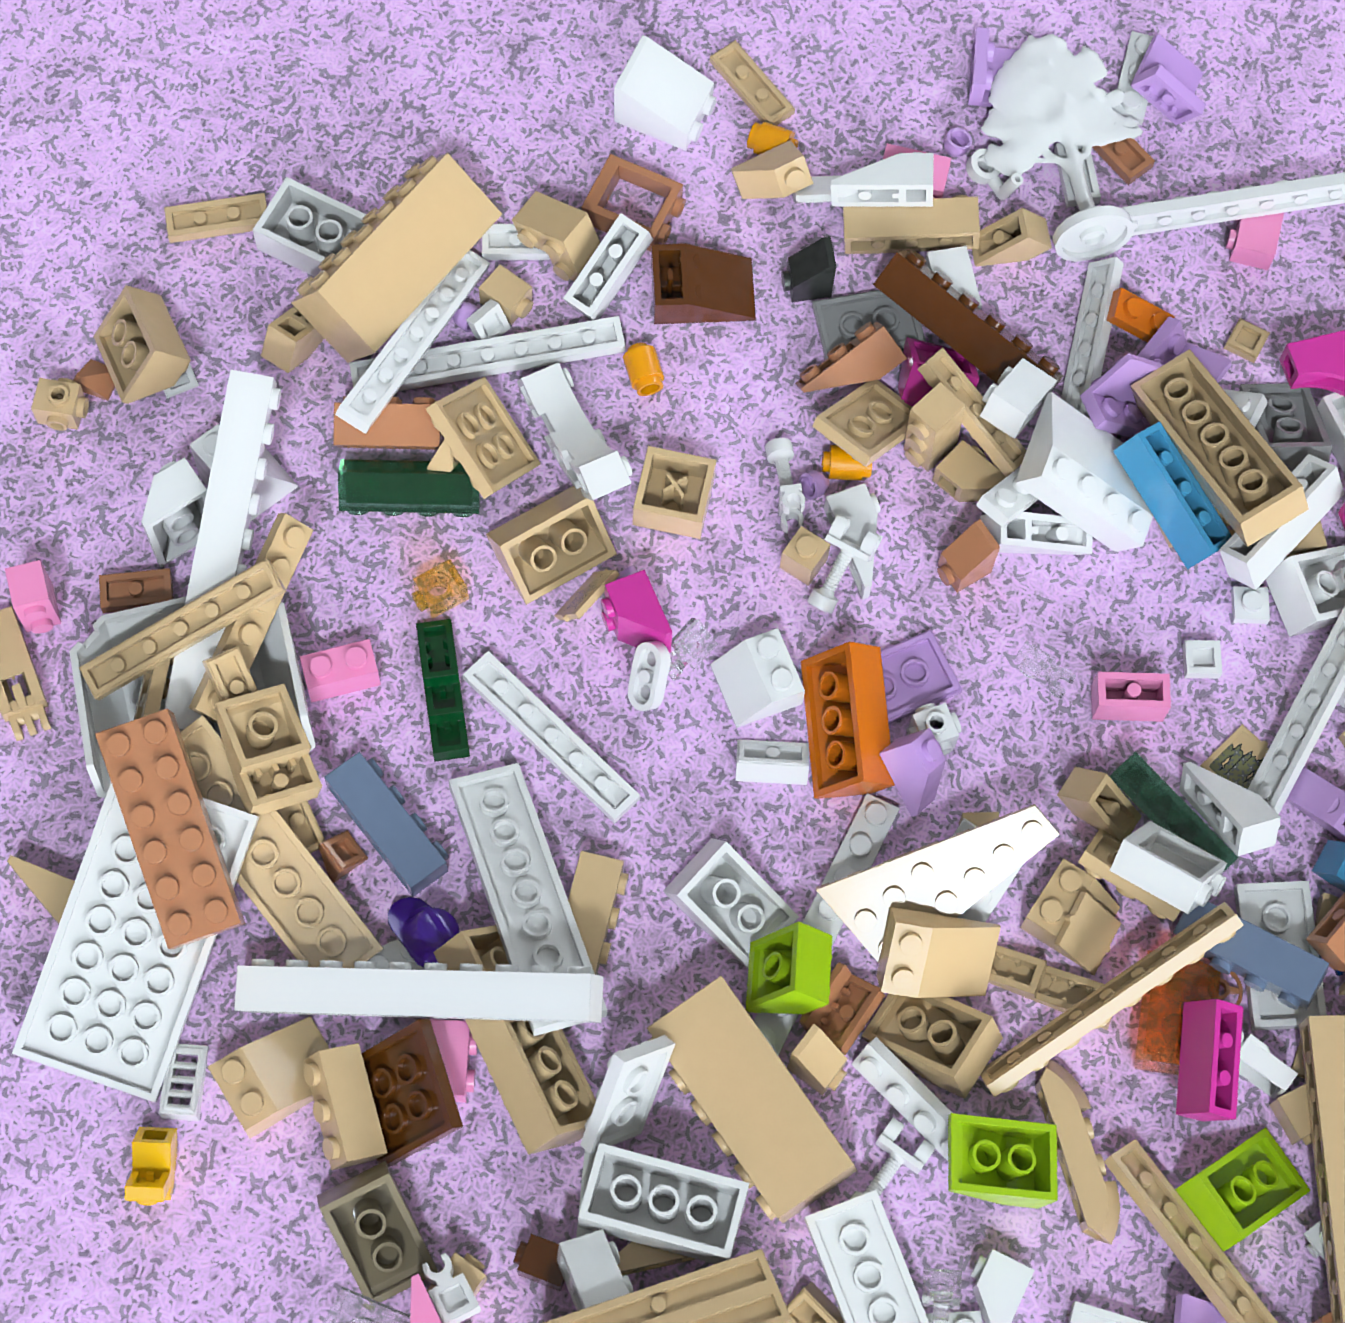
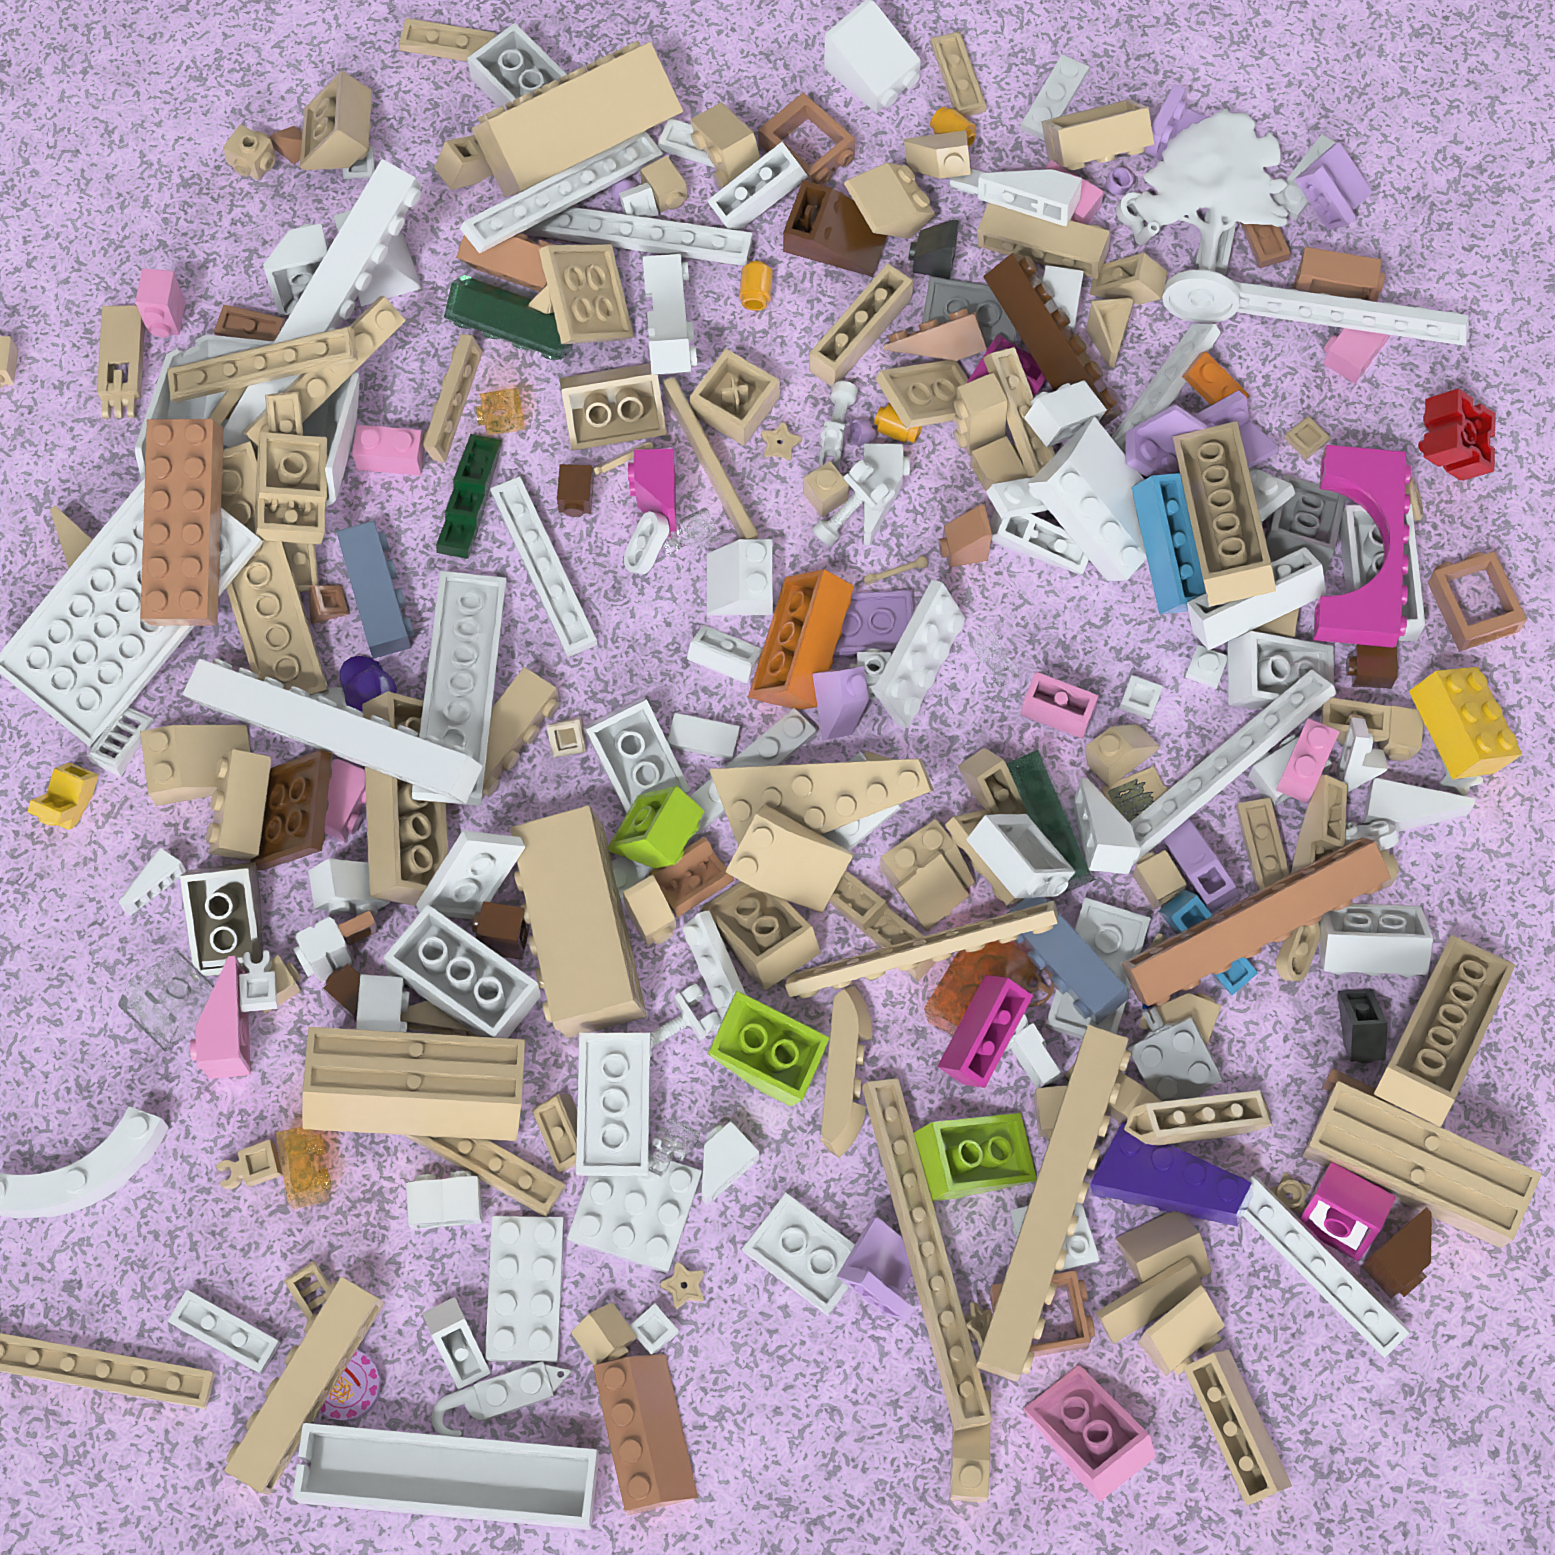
camera: 25 degrees right, 0 degrees up
(286, 1215) = (153, 879): none -> white slope
(381, 582) = (453, 397): none -> tan plate
(494, 1156) = (343, 888): none -> white brick
(500, 1229) = (322, 949): none -> white brick
(527, 1192) = (358, 928): none -> nougat tile
(550, 645) = (575, 489): none -> reddish brown brick
(650, 907) = (567, 737): none -> tan slope
(676, 568) = (709, 460): none -> tan tile
(676, 1137) = (502, 929): none -> reddish brown brick
(733, 531) = (780, 450): none -> tan plate
(746, 236) = (891, 200): none -> tan slope
(769, 375) = (860, 325): none -> tan brick
(788, 855) = (703, 736): none -> white tile
(857, 78) = (1055, 95): none -> white plate
(922, 101) = (1098, 134): none -> tan piece
(927, 597) = (921, 562): none -> tan hinge
(973, 694) = (919, 654): none -> white plate
(1013, 296) = (1108, 325): none -> tan slope
(1206, 723) = (1119, 752): none -> tan slope
(1215, 169) = (1339, 274): none -> nougat window
(1300, 837) = (1158, 878): none -> tan brick

